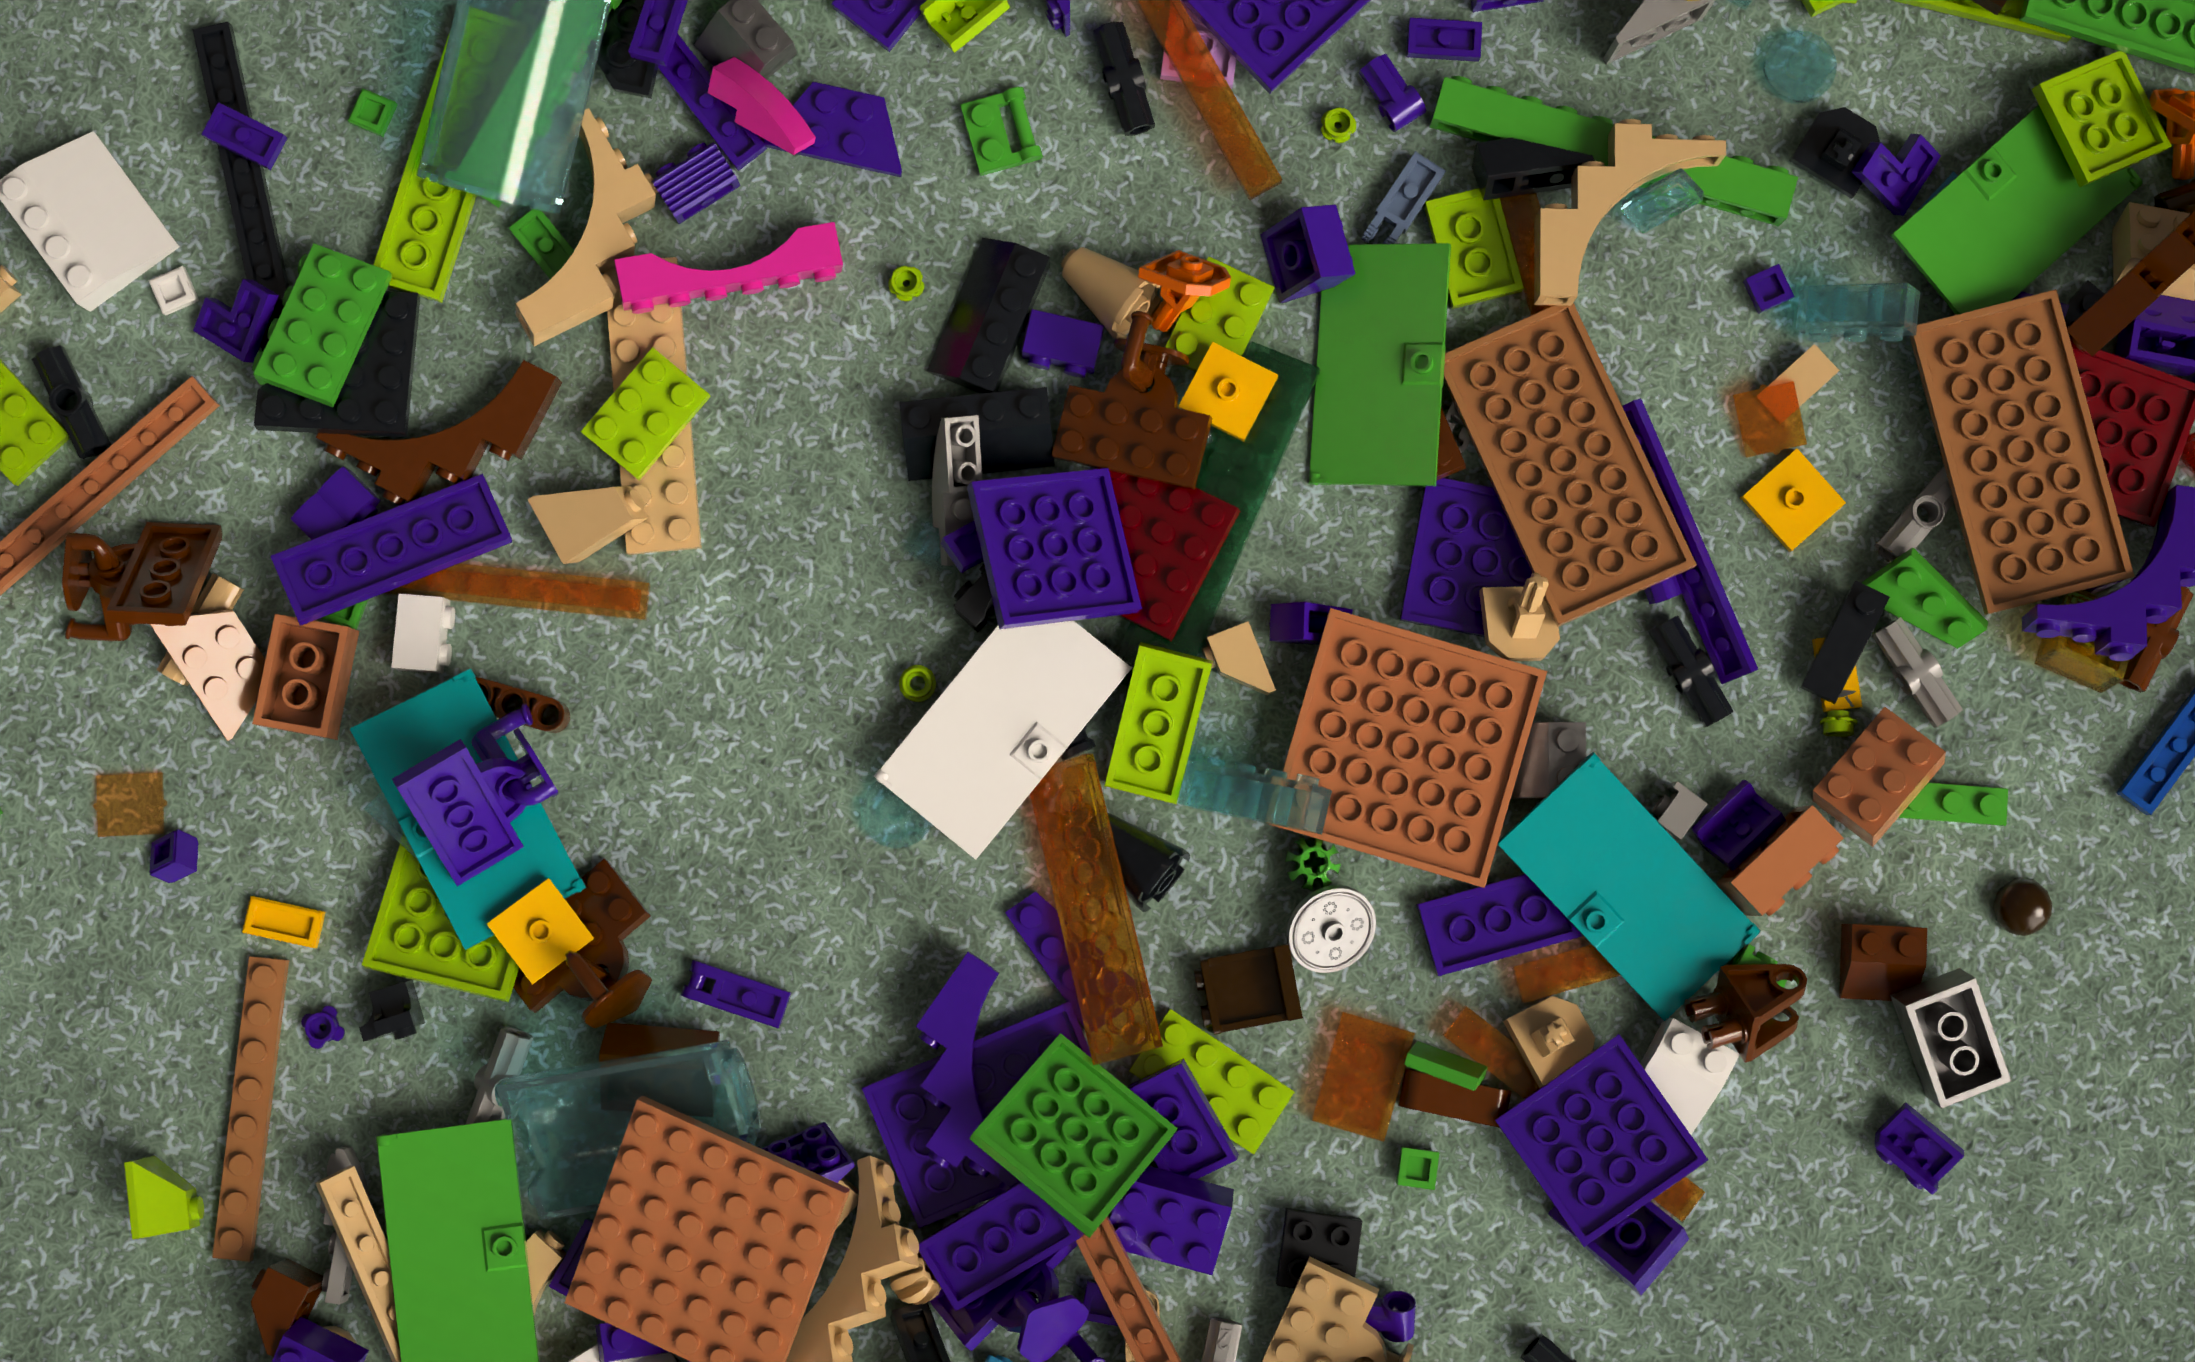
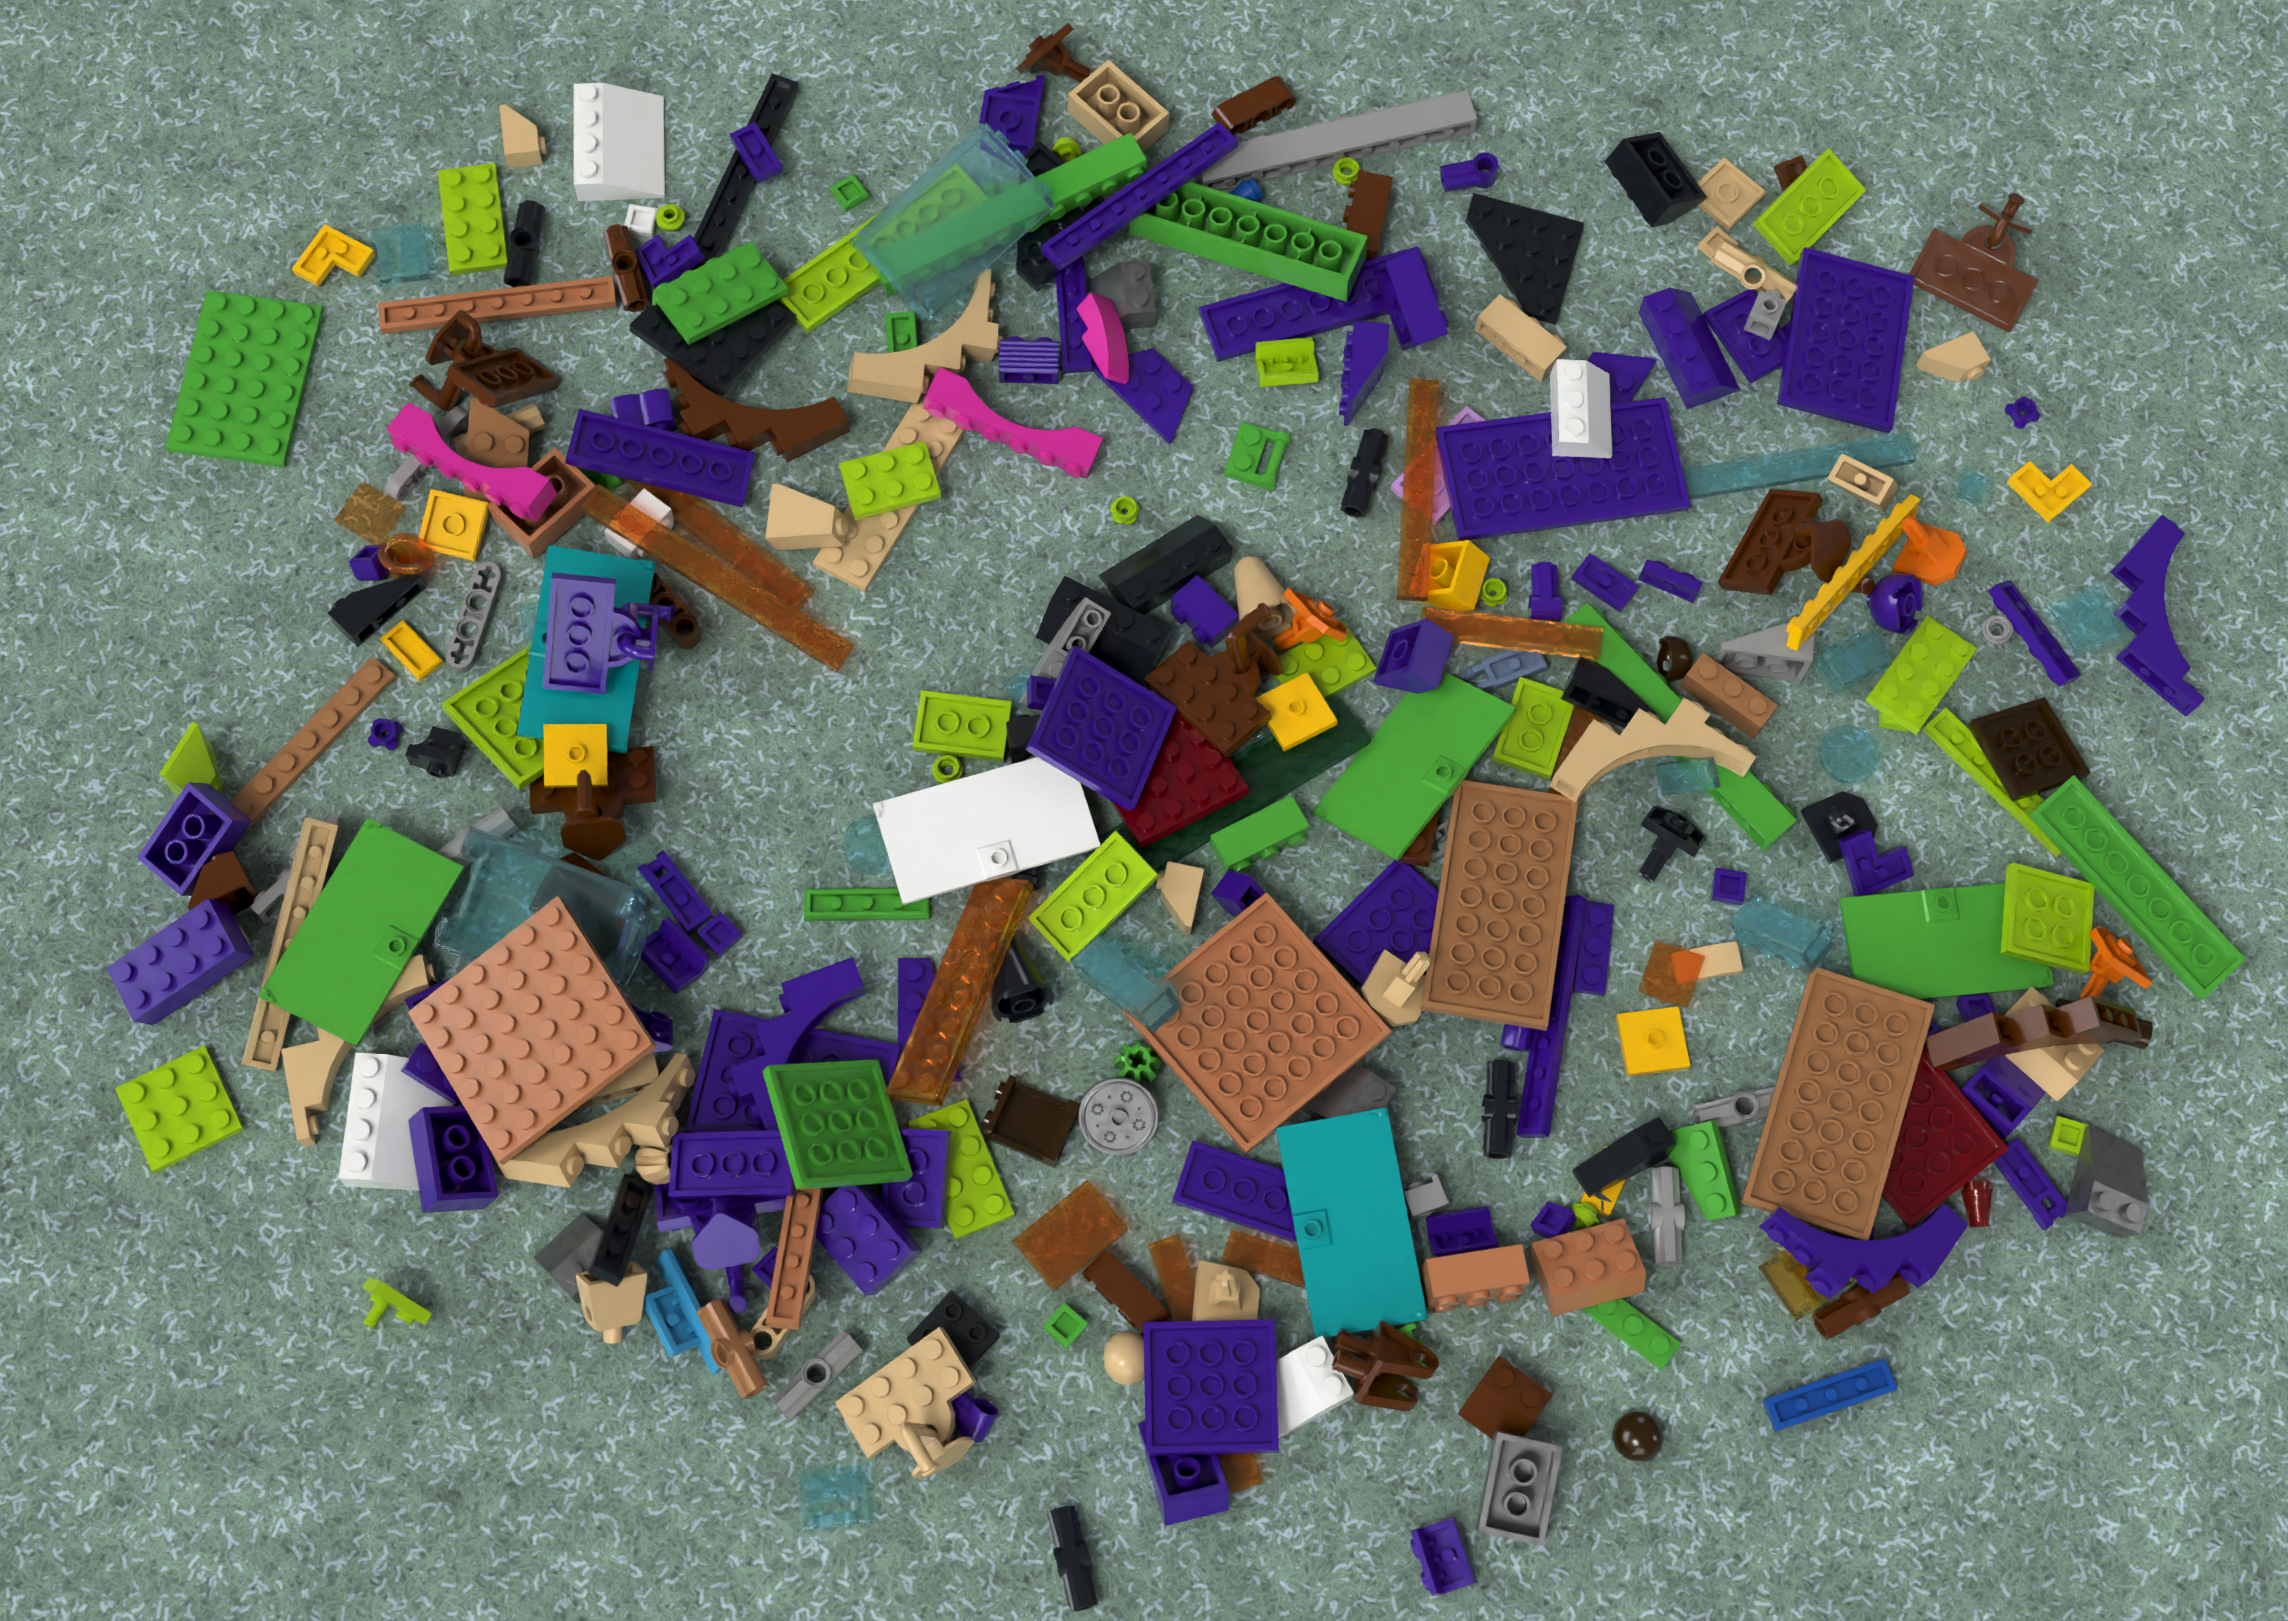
camera: 35 degrees right, 15 degrees down
(142, 701) = (412, 471): none -> light grey beam
(184, 343) = (622, 255): none -> reddish brown piece
(204, 829) = (405, 555): none -> clear orange hat
(208, 912) = (369, 609): none -> black slope
(212, 272) = (670, 224): none -> lime plate
(214, 1272) = (191, 834): none -> dark purple brick
(228, 761) = (454, 524): none -> yellow plate
(272, 688) = (517, 488): none -> dark pink arch
(317, 845) = (474, 617): none -> light grey beam
(542, 641) = (716, 578): none -> clear orange plate
(783, 1061) = (674, 956): none -> dark purple bracket
(811, 1007) = (719, 934): none -> dark purple plate
(901, 627) = (962, 726): none -> lime plate
(926, 883) = (861, 905): none -> bright green tile
(1277, 546) = (1260, 836): none -> bright green brick
(1292, 132) = (1456, 575): none -> yellow slope
(1392, 158) = (1518, 633): none -> clear orange plate
(1446, 1065) = (1134, 1264): bright green tile -> none
(1493, 1157) = (1125, 1357): none -> tan hair
(1569, 73) = (1678, 655): none -> dark brown hair
(1646, 84) = (1728, 696): none -> medium nougat brick
(1678, 442) = (1594, 949): none -> dark purple plate
(1682, 272) = (1673, 832): none -> black piece
(1814, 750) = (1553, 1220): none -> dark purple plate
(2087, 259) = (1974, 1006): none -> dark purple plate

